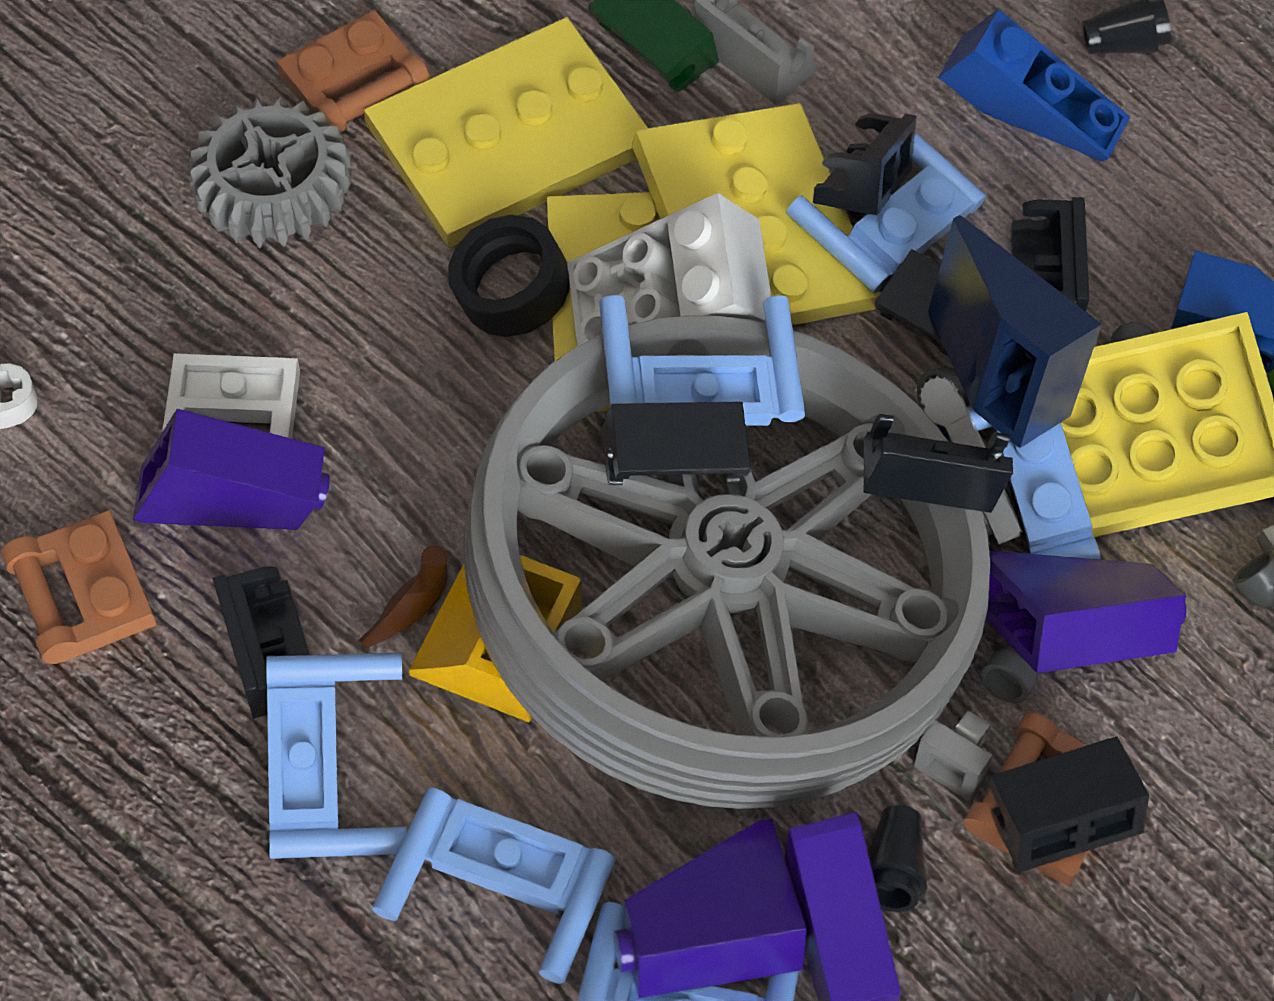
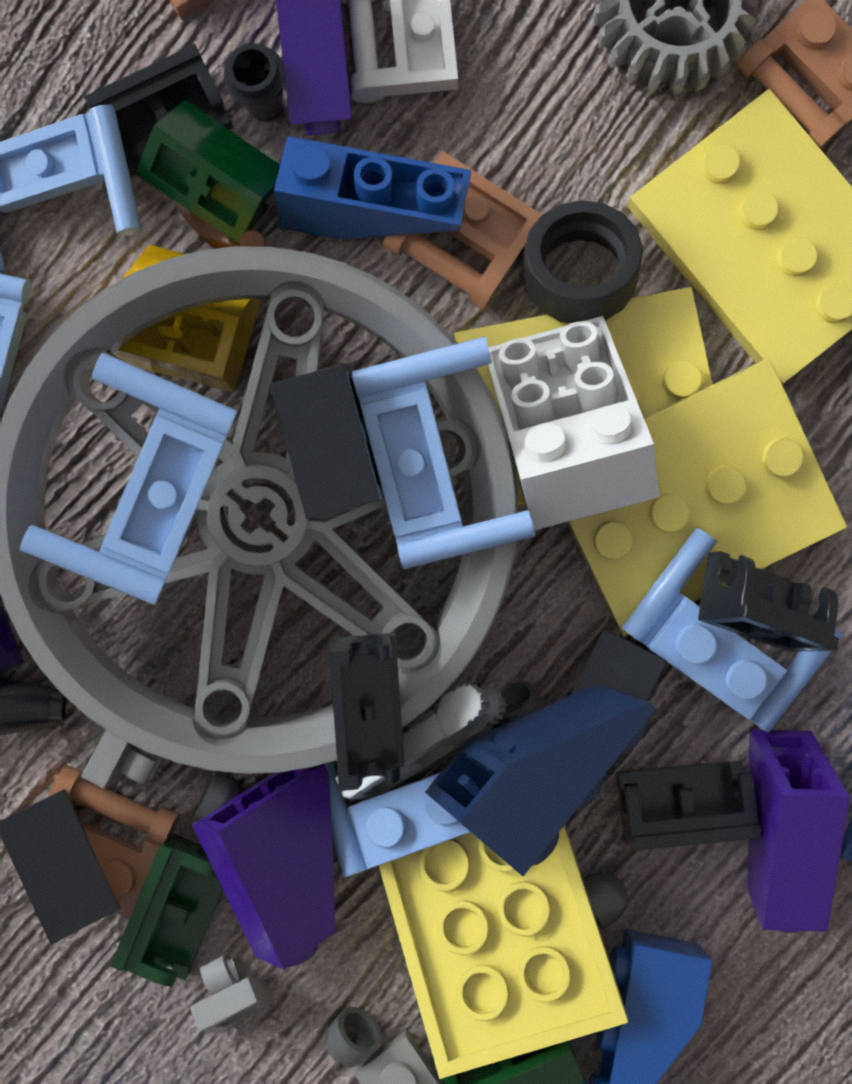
camera: 85 degrees right, 25 degrees up
(264, 527) = (256, 80): none -> black cone
(349, 588) = (209, 170): none -> dark green hinge
(403, 449) = (365, 193): none -> blue slope
(438, 366) = (491, 225): none -> nougat plate
(709, 579) = (159, 493): none -> light blue plate
(1069, 158) = (801, 827): none -> dark purple slope
(1151, 741) = (170, 914): none -> dark green hinge
(1214, 682) = (231, 996): none -> light grey tile

